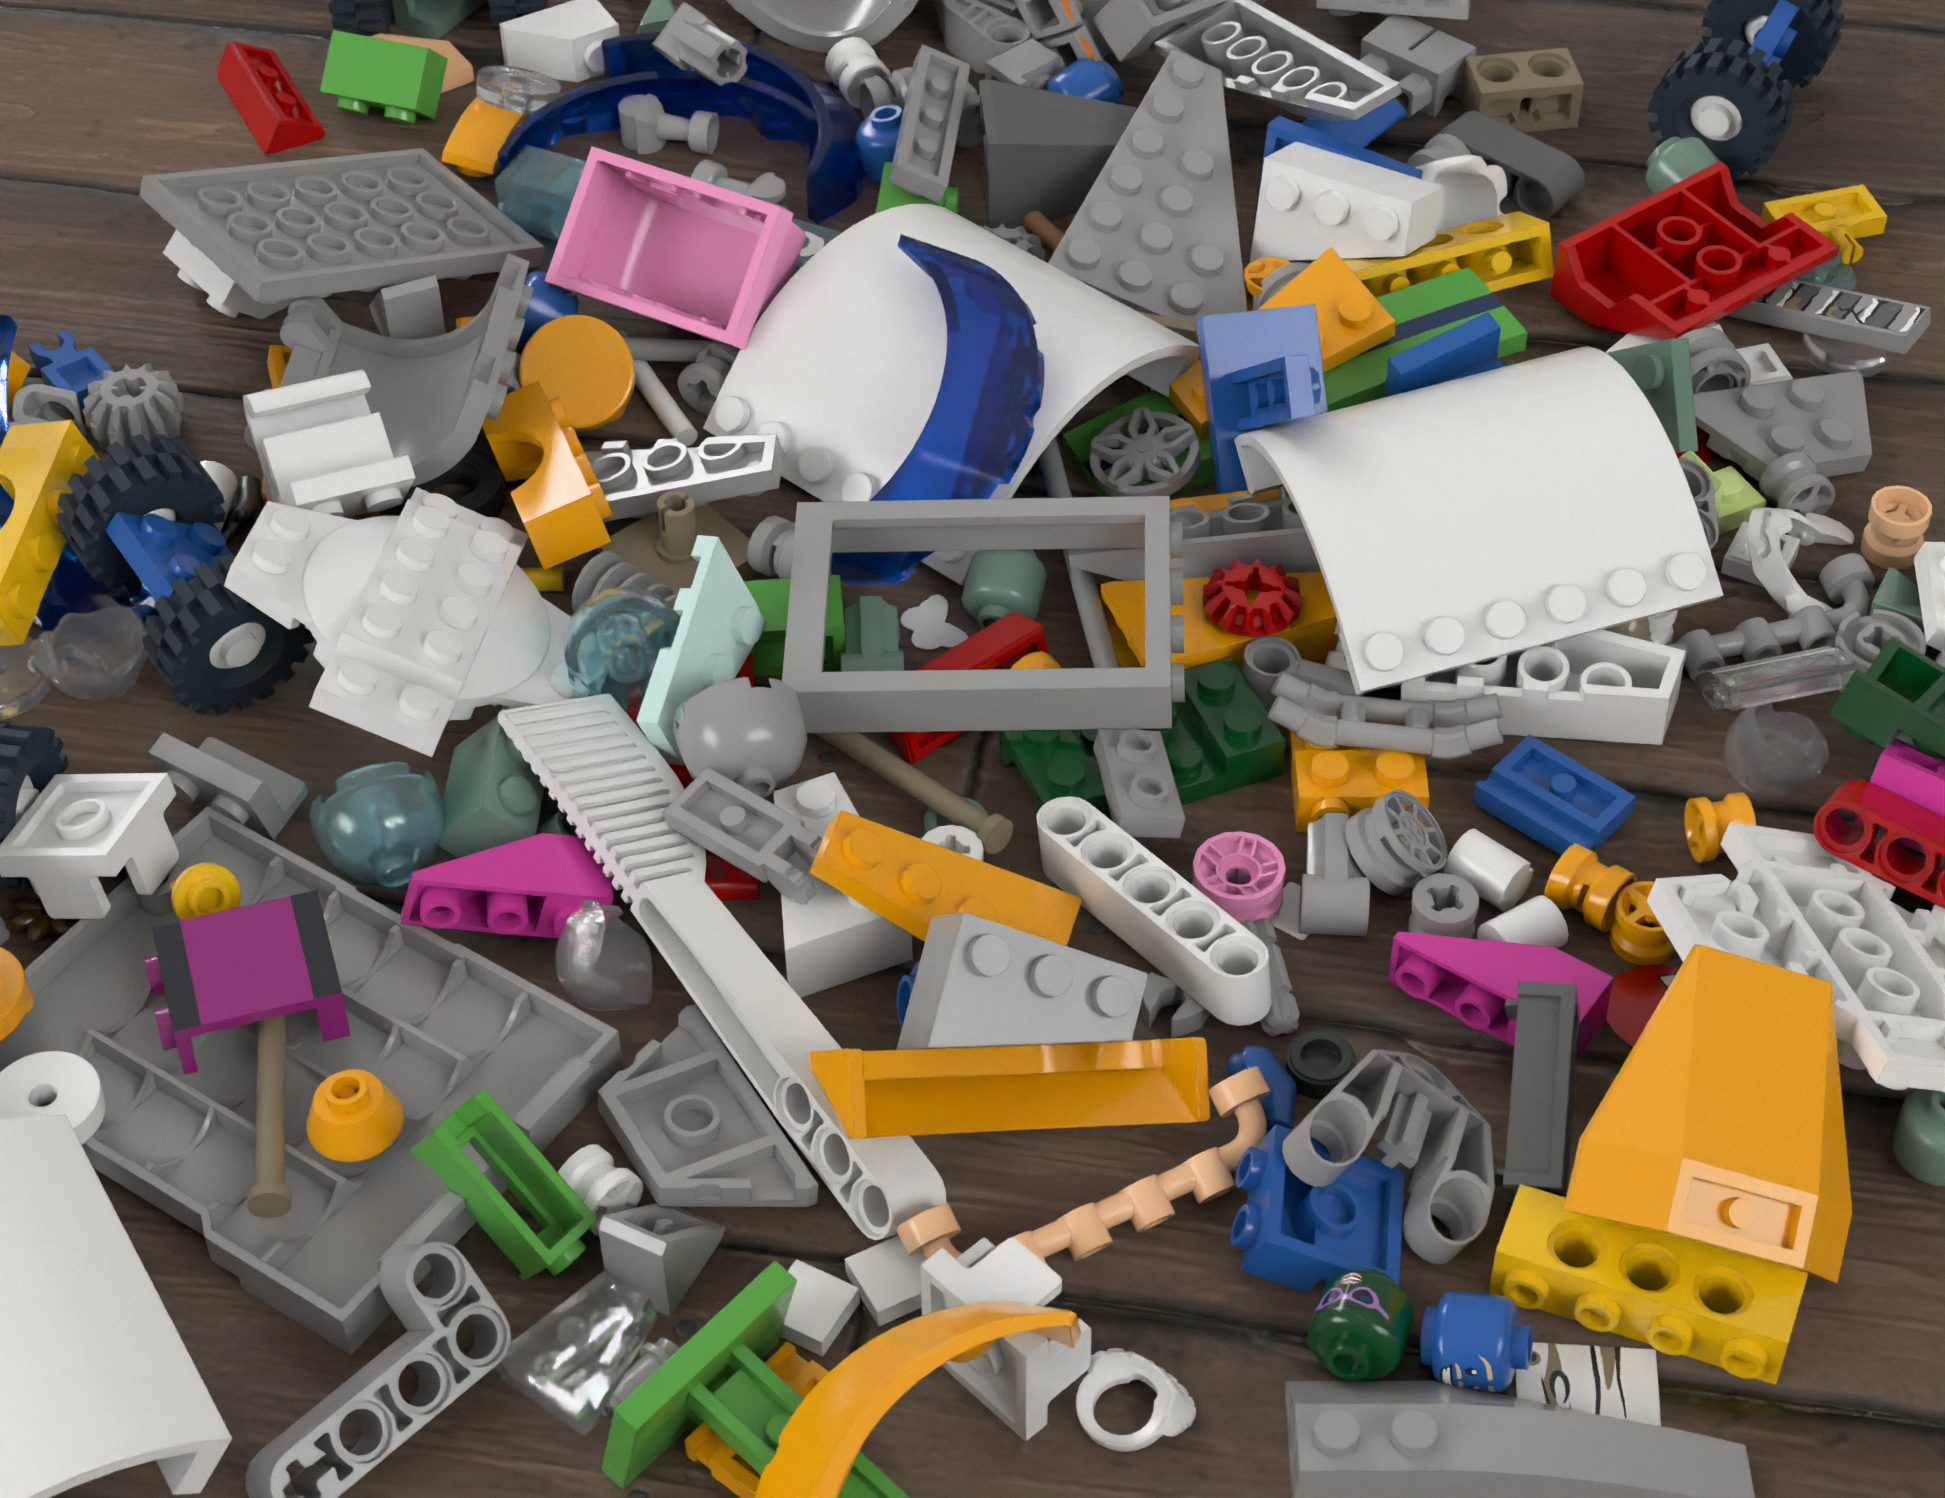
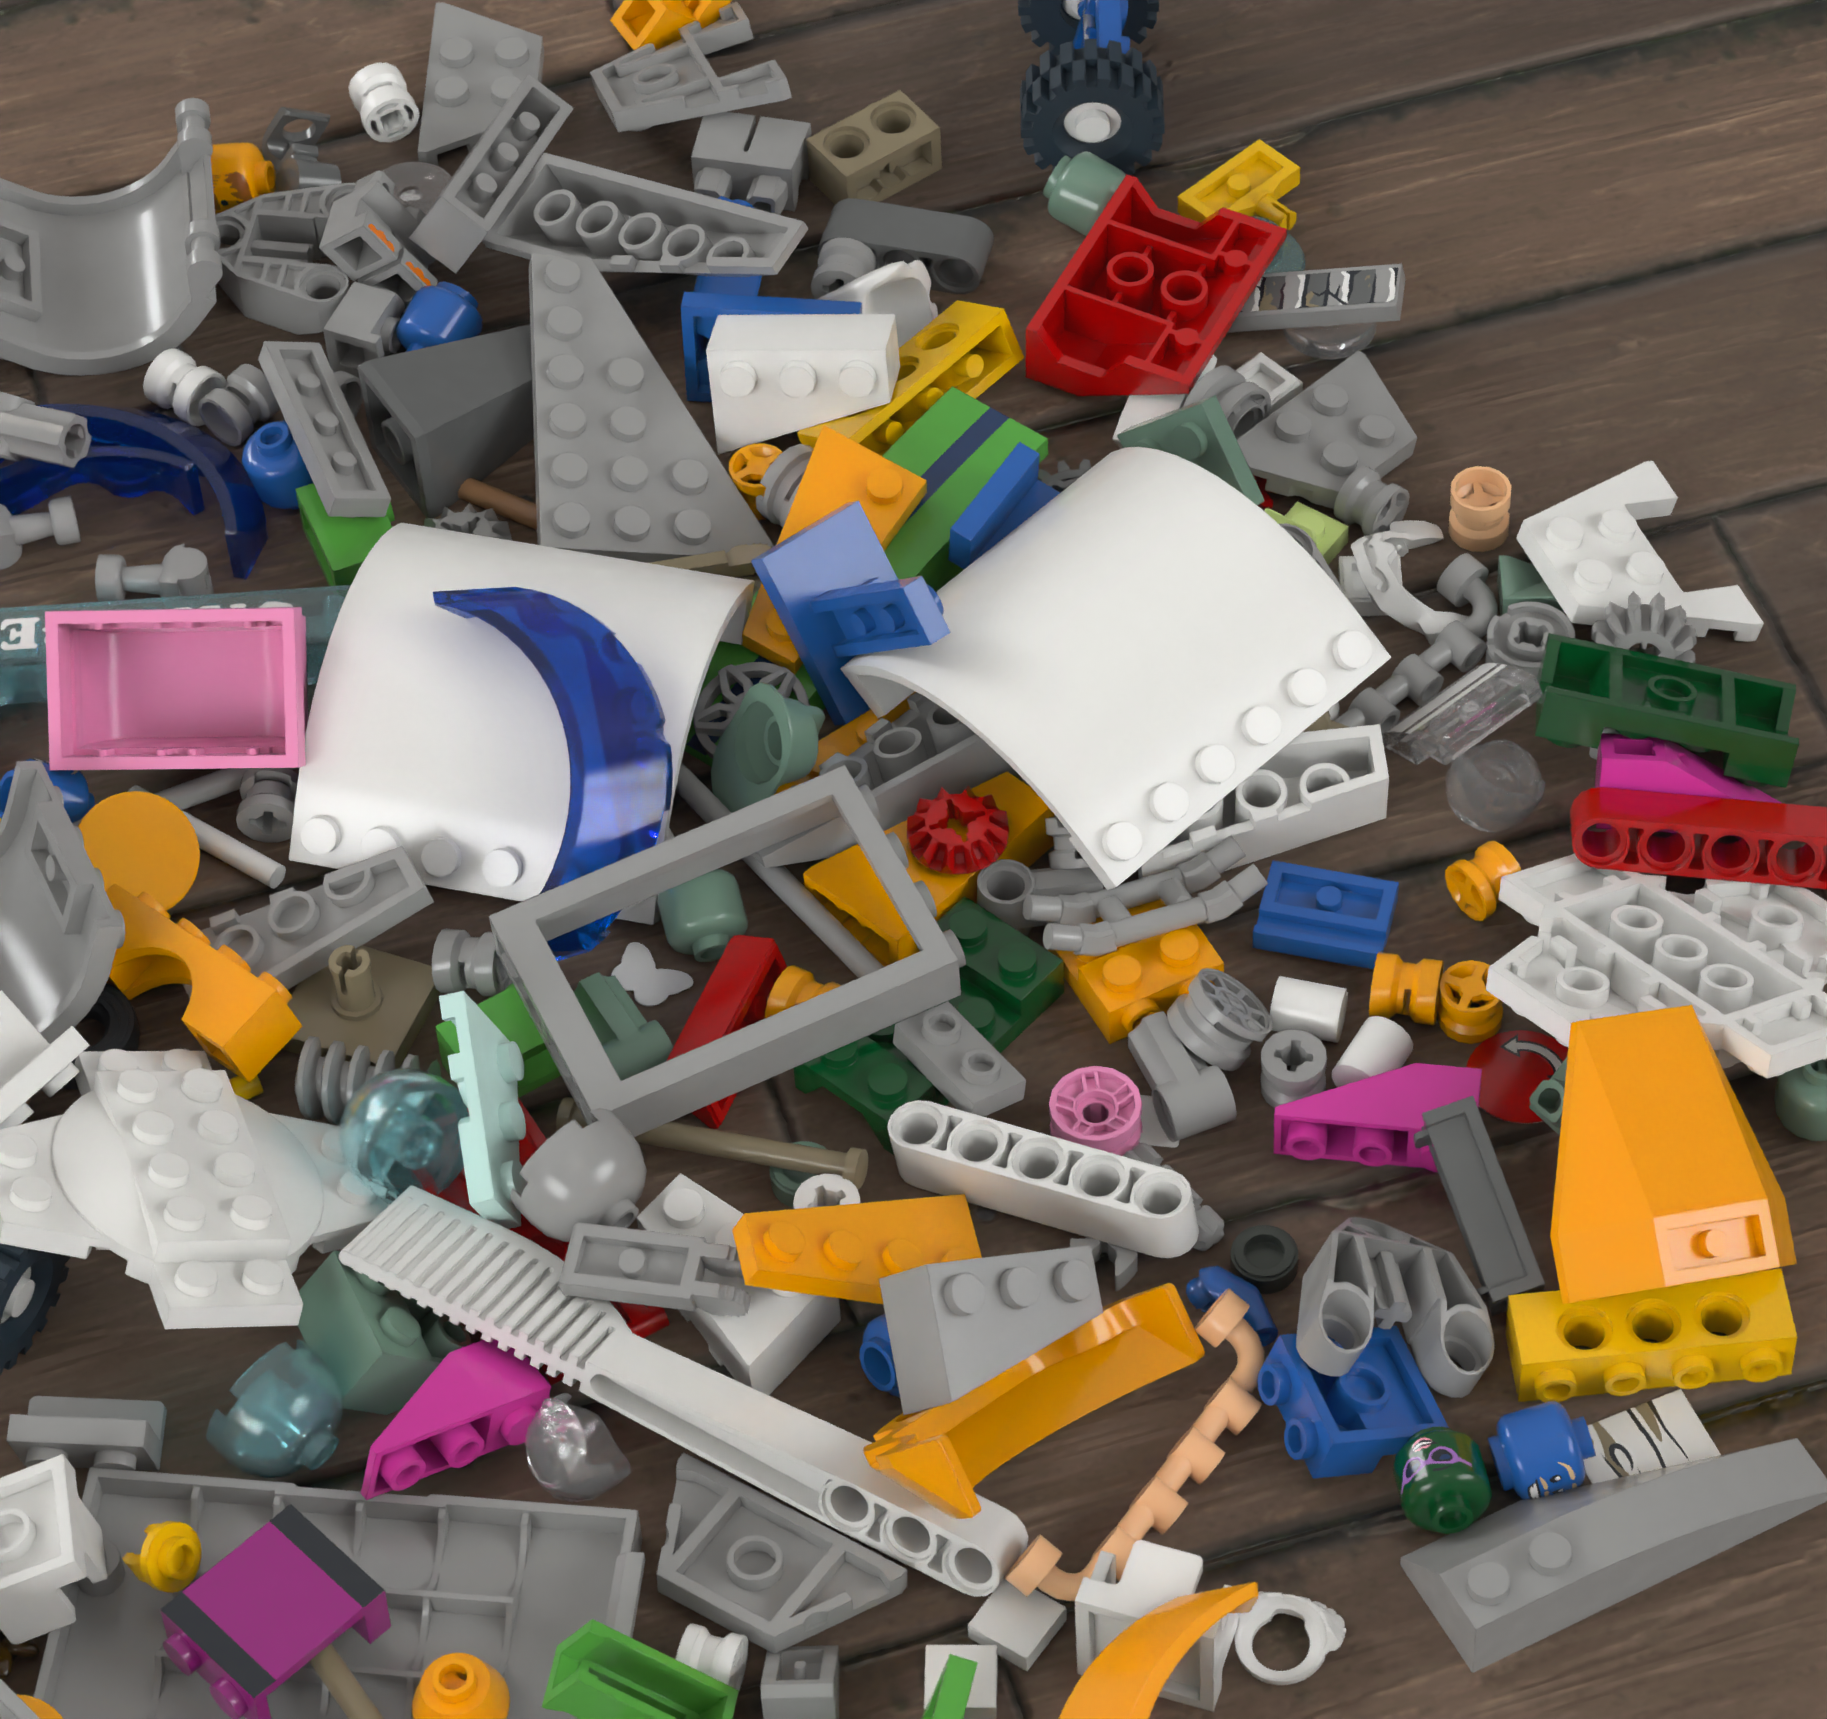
camera: 25 degrees left, 5 degrees up
(1138, 465) = (764, 747): none -> sand green piece

